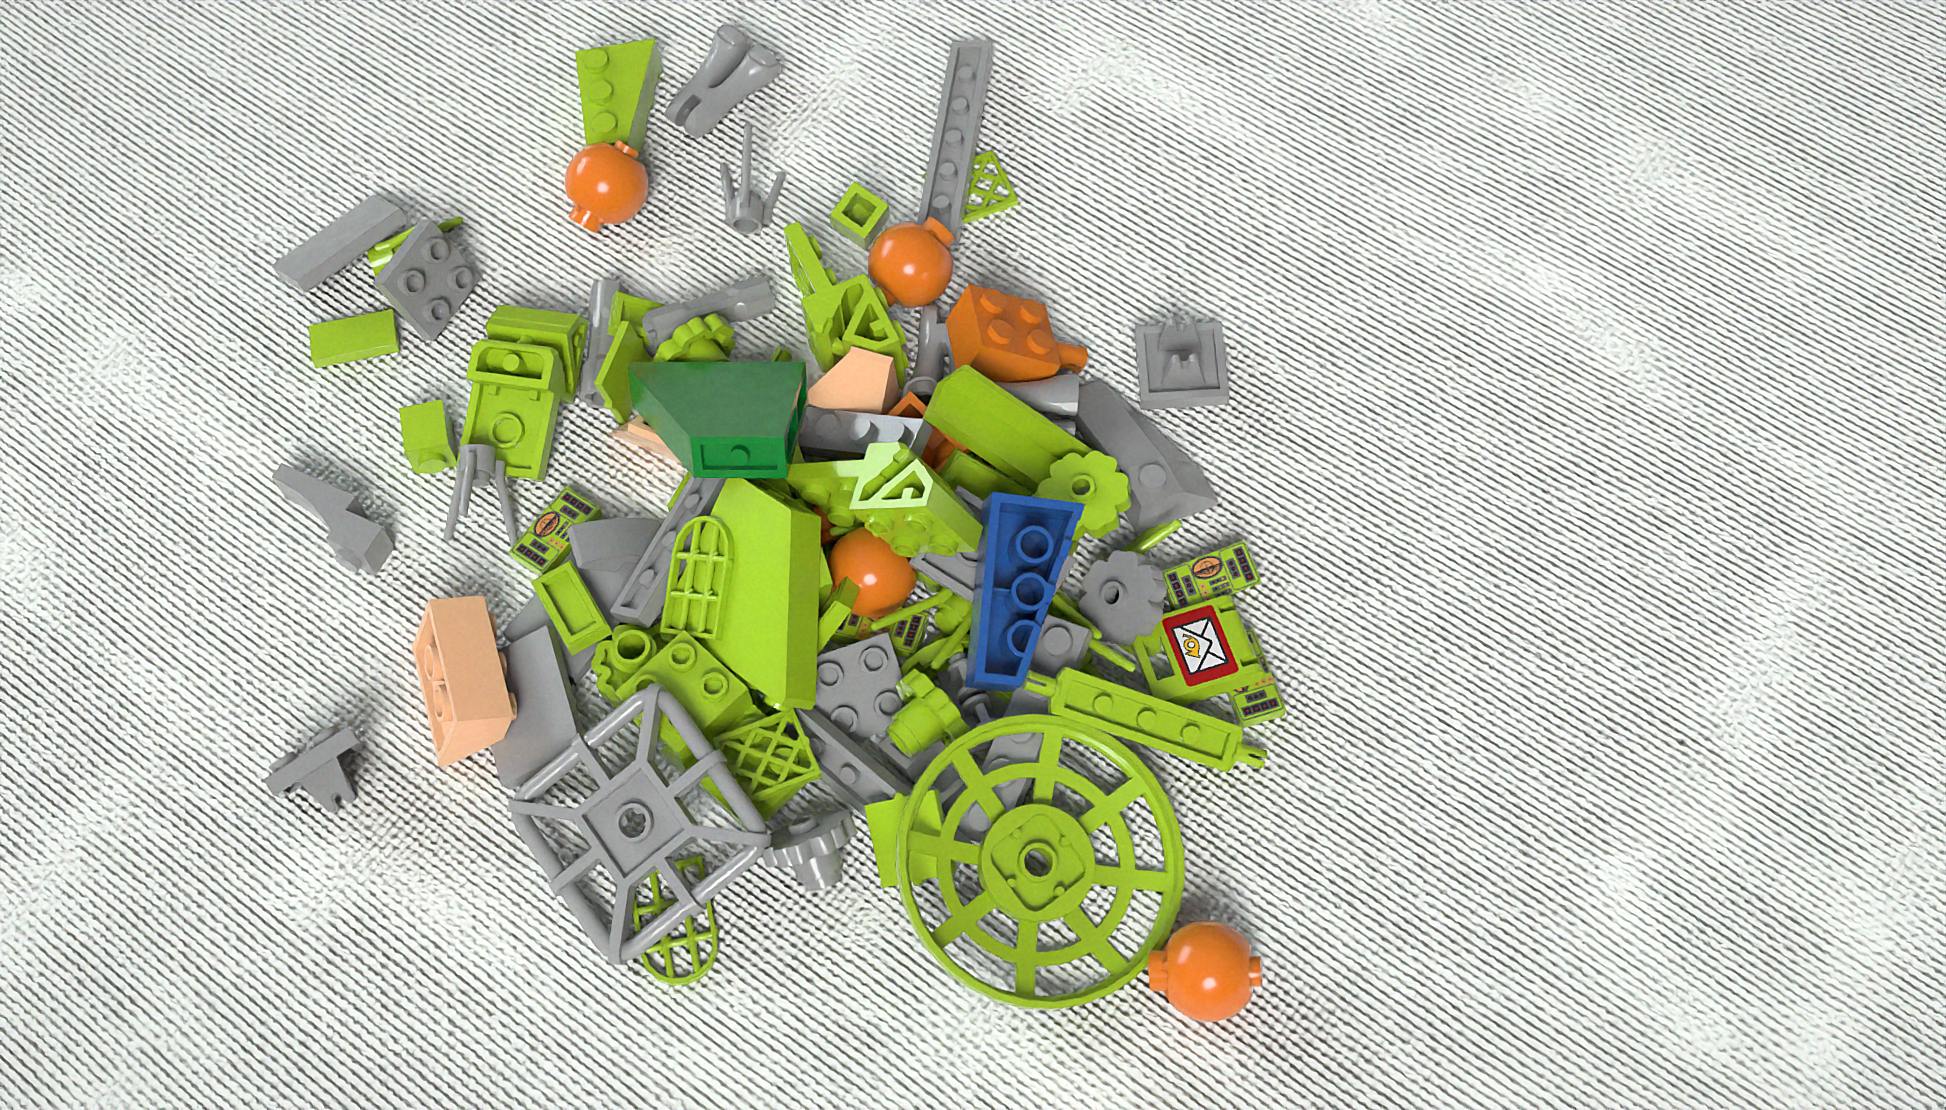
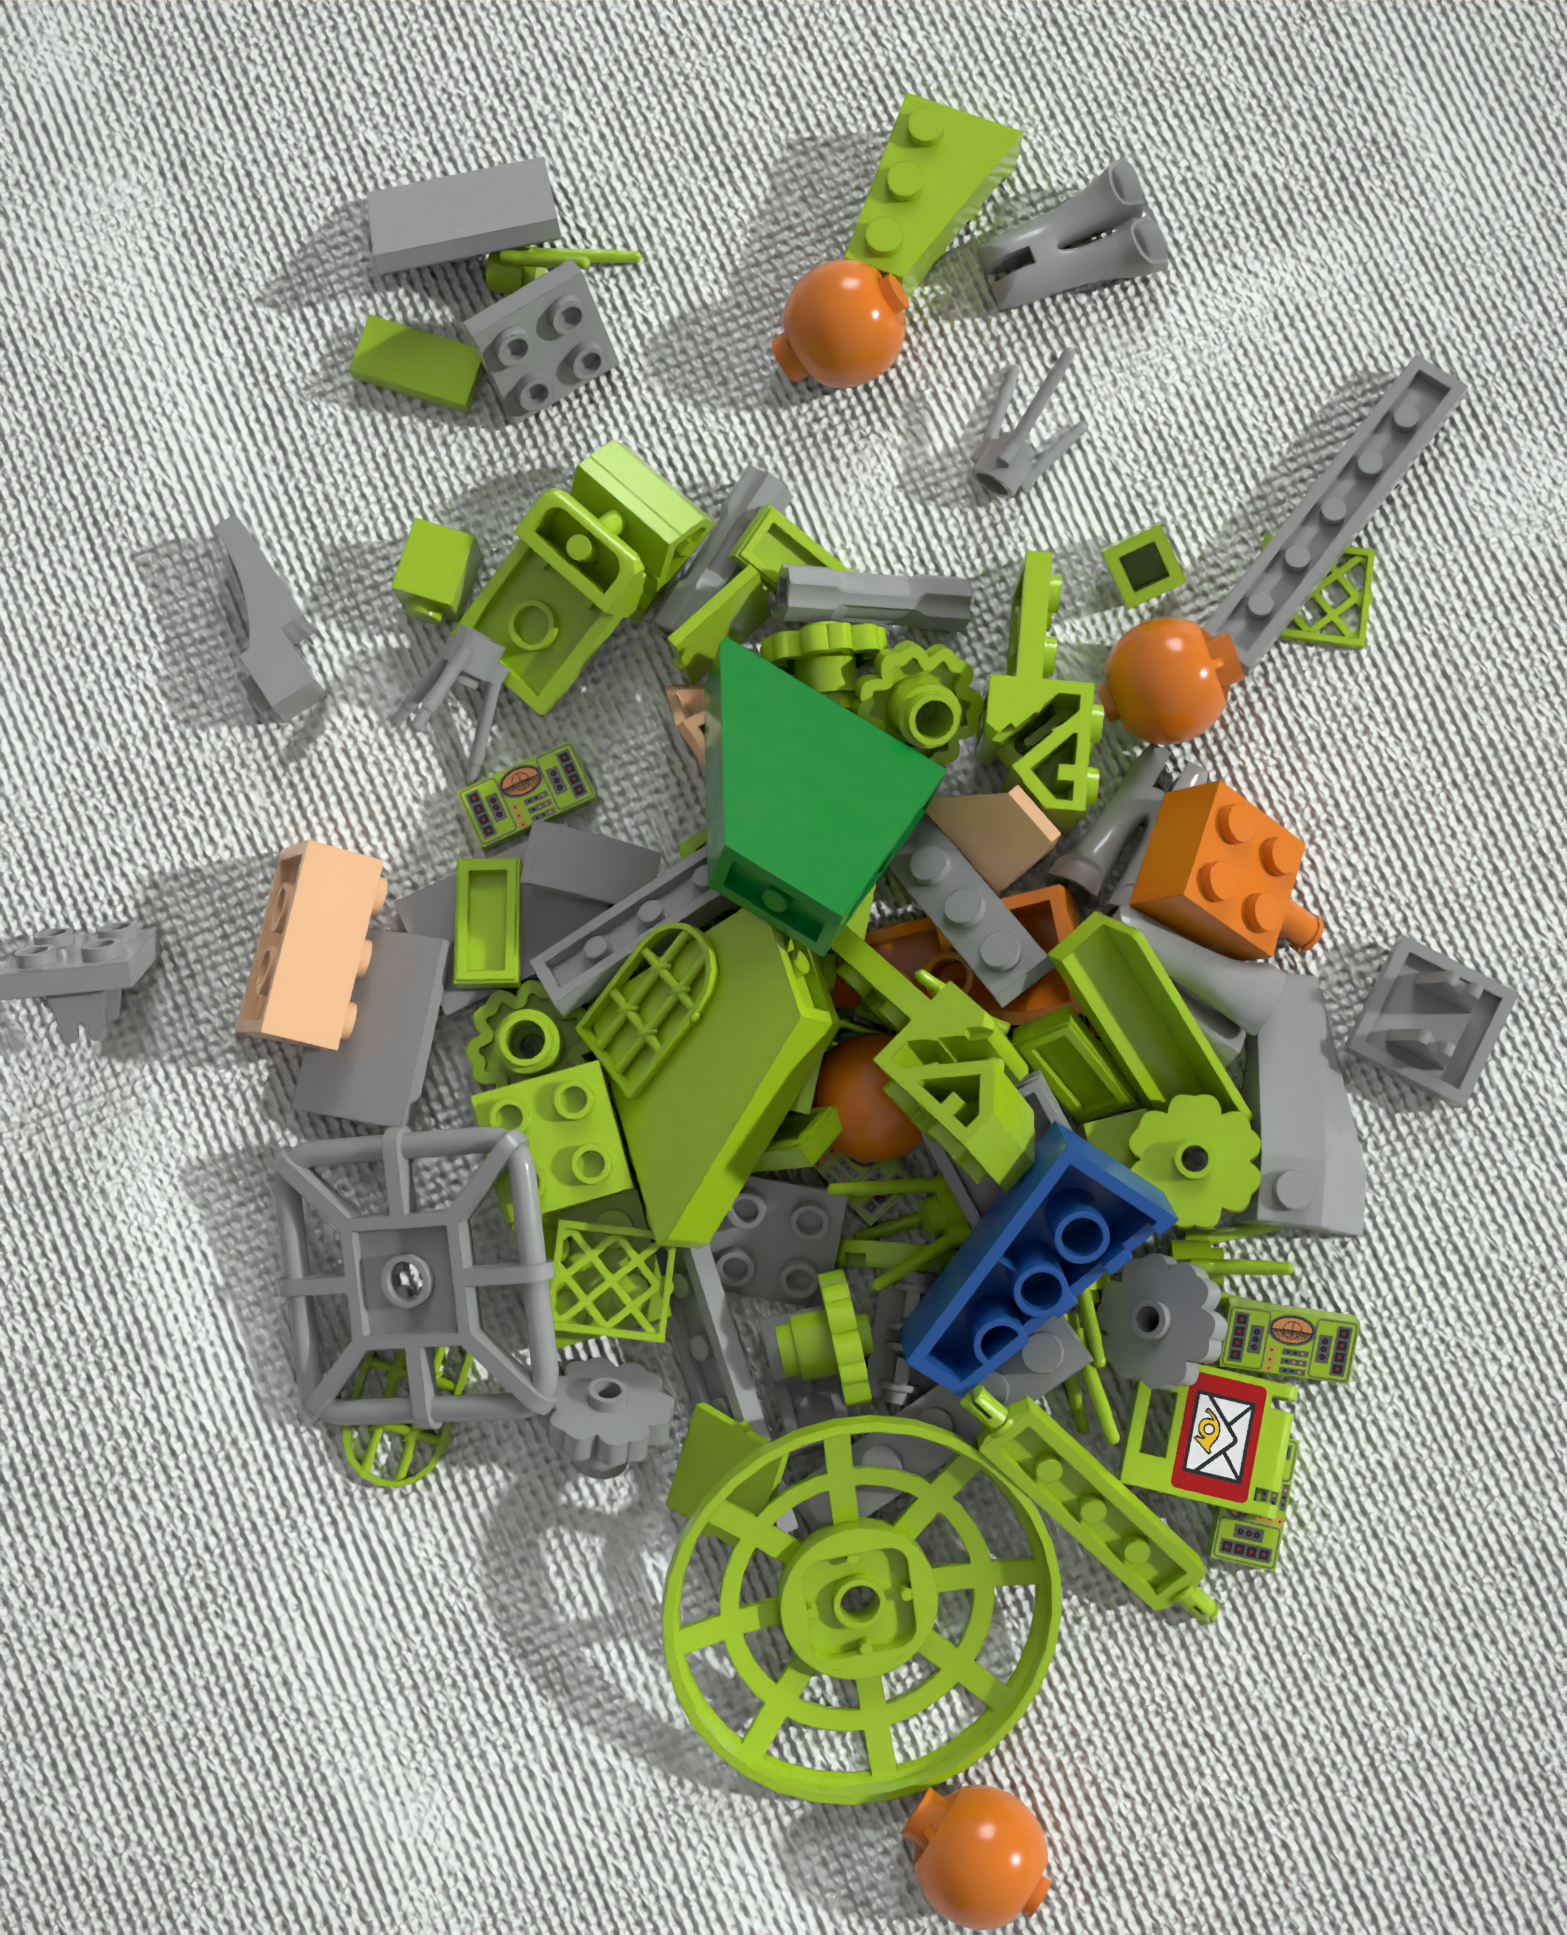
camera: 25 degrees right, 20 degrees up
(768, 337) = (923, 680): none -> lime plant

